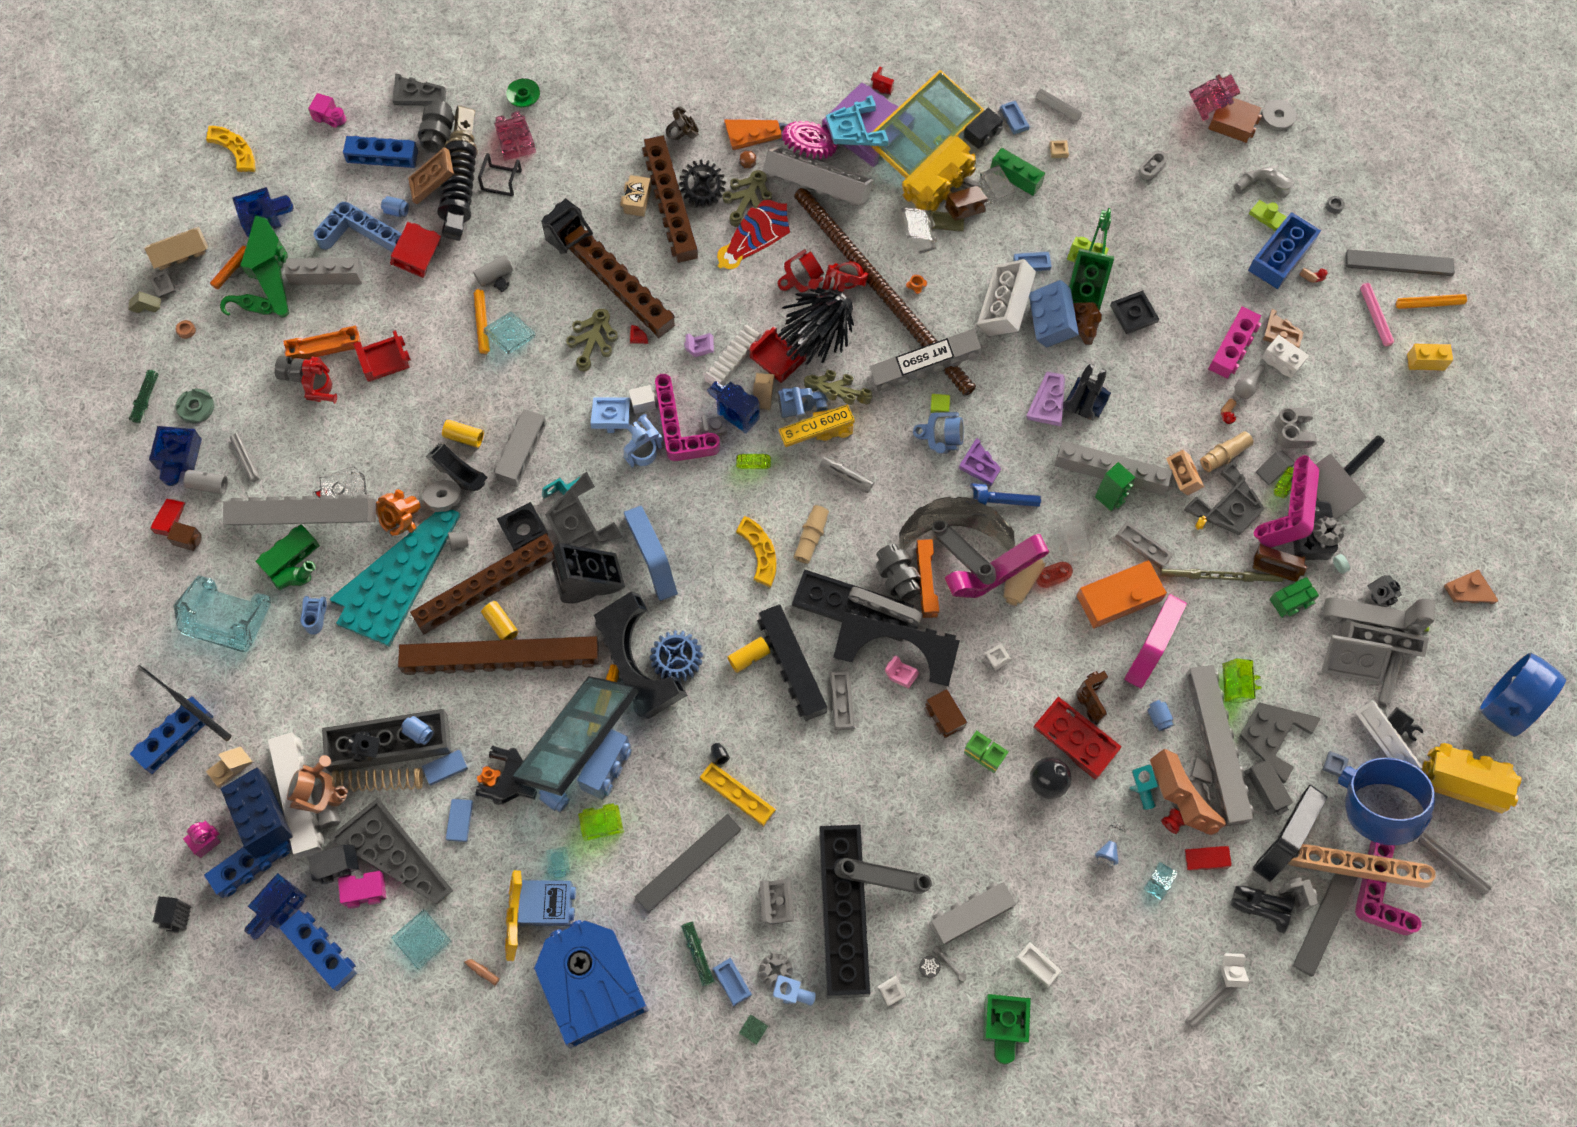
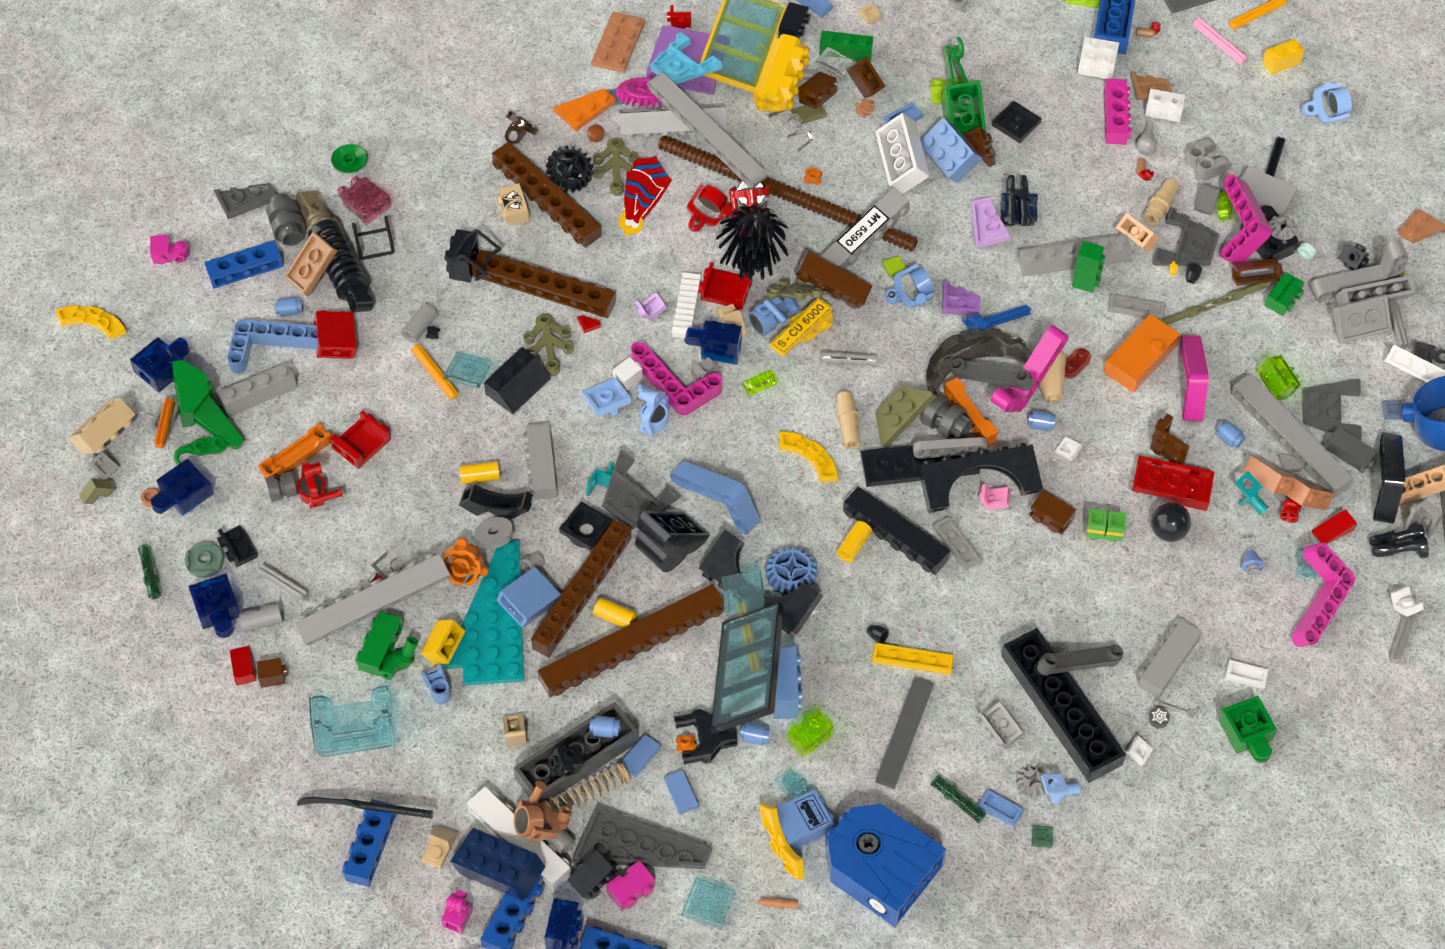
camera: 25 degrees left, 10 degrees down
(210, 334) = (181, 488): none -> clear blue brick
(226, 406) = (237, 546): none -> black bracket
(338, 578) = (442, 642): none -> yellow brick
(350, 688) = (514, 729): none -> tan slope
(432, 571) = (528, 597): none -> medium blue brick
(543, 362) = (516, 380): none -> black slope
(617, 659) = (743, 593): none -> clear light blue tile
(817, 82) = (618, 42): none -> nougat plate
(835, 200) = (707, 130): none -> light grey beam
(859, 549) = (900, 412): none -> olive wing
(872, 394) = (833, 280): none -> reddish brown brick
(988, 617) = (1041, 420): none -> medium blue brick
(1002, 236) = (865, 107): none -> nougat piece
(1015, 209) = (865, 77): none -> reddish brown brick
(1178, 918) = (1337, 585): none -> dark pink beam
(1217, 536) = (1193, 273): none -> black hose
(1247, 282) = (1098, 58): none -> white brick
(1459, 425) = (1338, 100): none -> light blue piece

